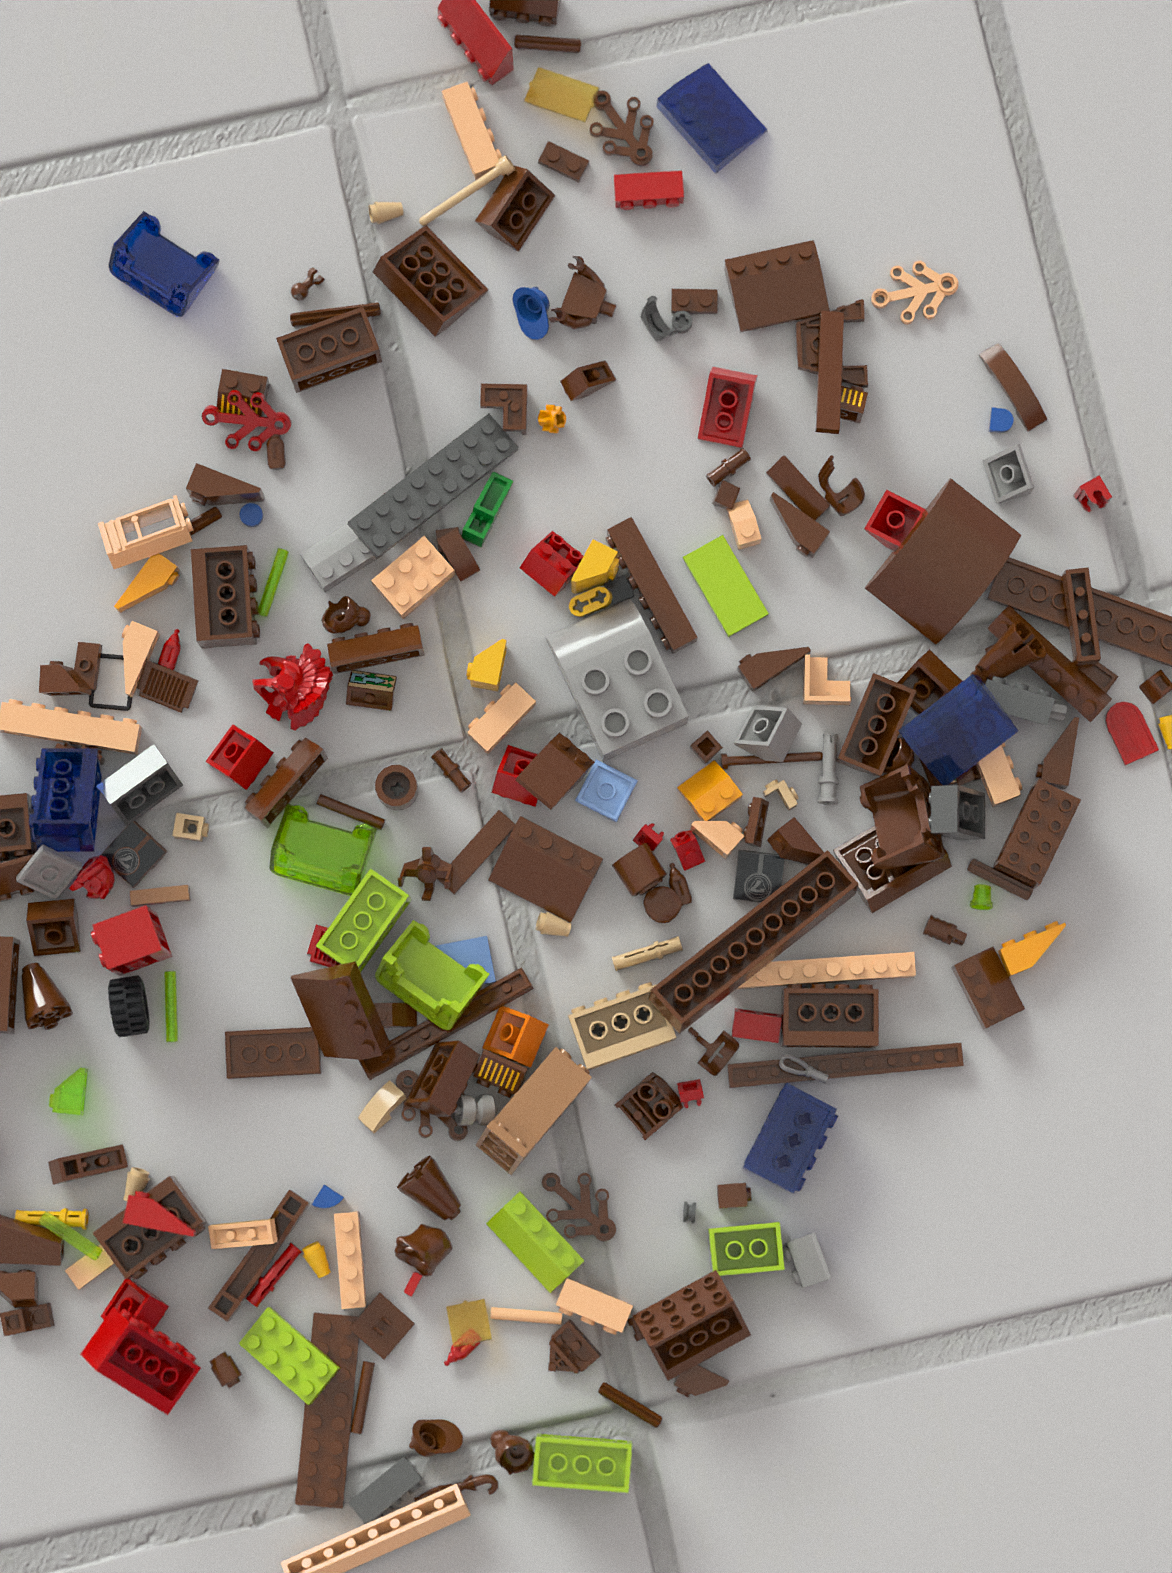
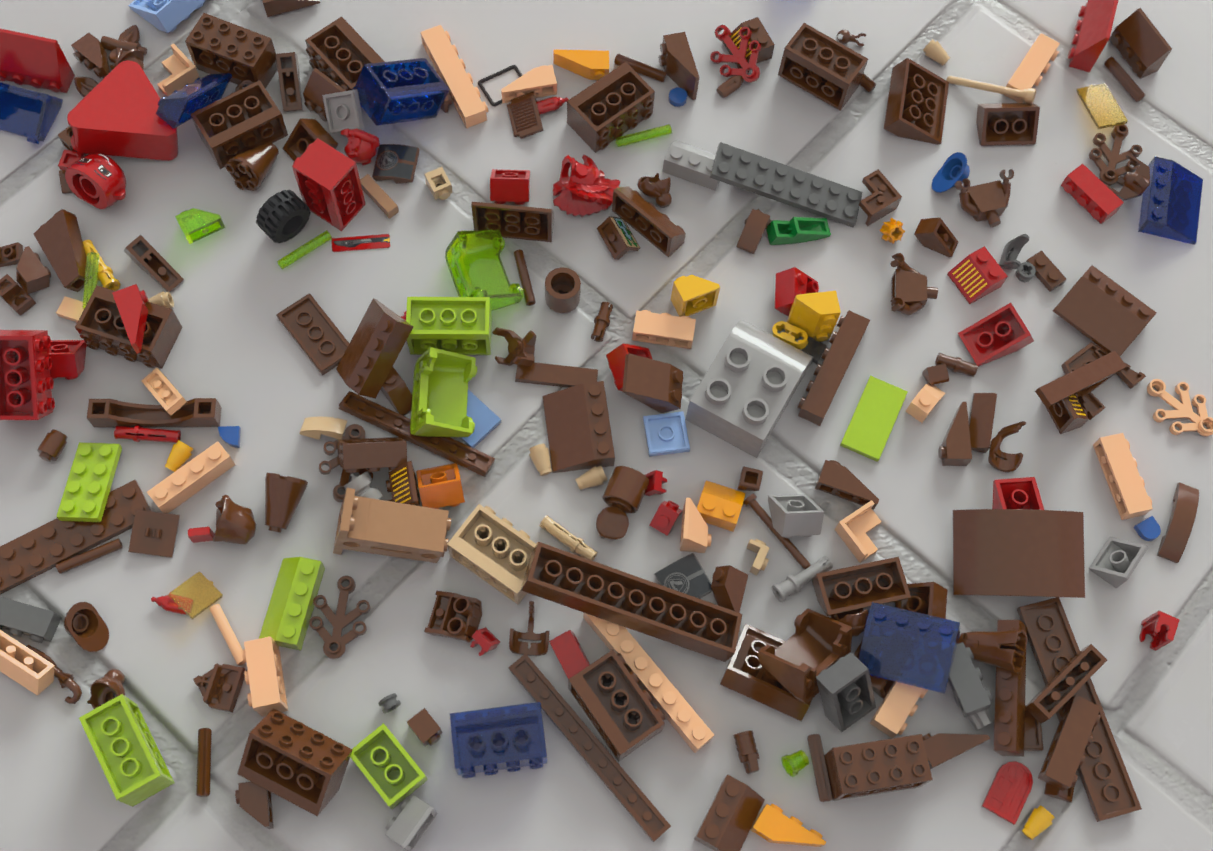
camera: 50 degrees right, 15 degrees down
(61, 680) = (480, 50): reddish brown slope -> none
(88, 663) = (502, 63): reddish brown plate -> none
(140, 785) = (444, 132): dark grey brick -> none
(146, 532) = (616, 39): light nougat door -> none
(199, 946) = (360, 242): none -> red sticker
(413, 577) = (715, 213): light nougat brick -> none
(563, 161) = (1061, 135): reddish brown plate -> none
(603, 891) = (592, 478): none -> tan cone
(624, 451) = (909, 288): none -> reddish brown torso
(654, 374) = (977, 275): none -> red slope
(670, 142) = (1134, 183): none -> reddish brown piece
(679, 884) = (635, 529): reddish brown piece -> none
(757, 817) = (723, 551): reddish brown plate -> none
(809, 1072) = (562, 719): light grey piece -> none
(939, 403) = (1122, 476): none -> light nougat brick
(1129, 653) = (1070, 743): none -> reddish brown brick

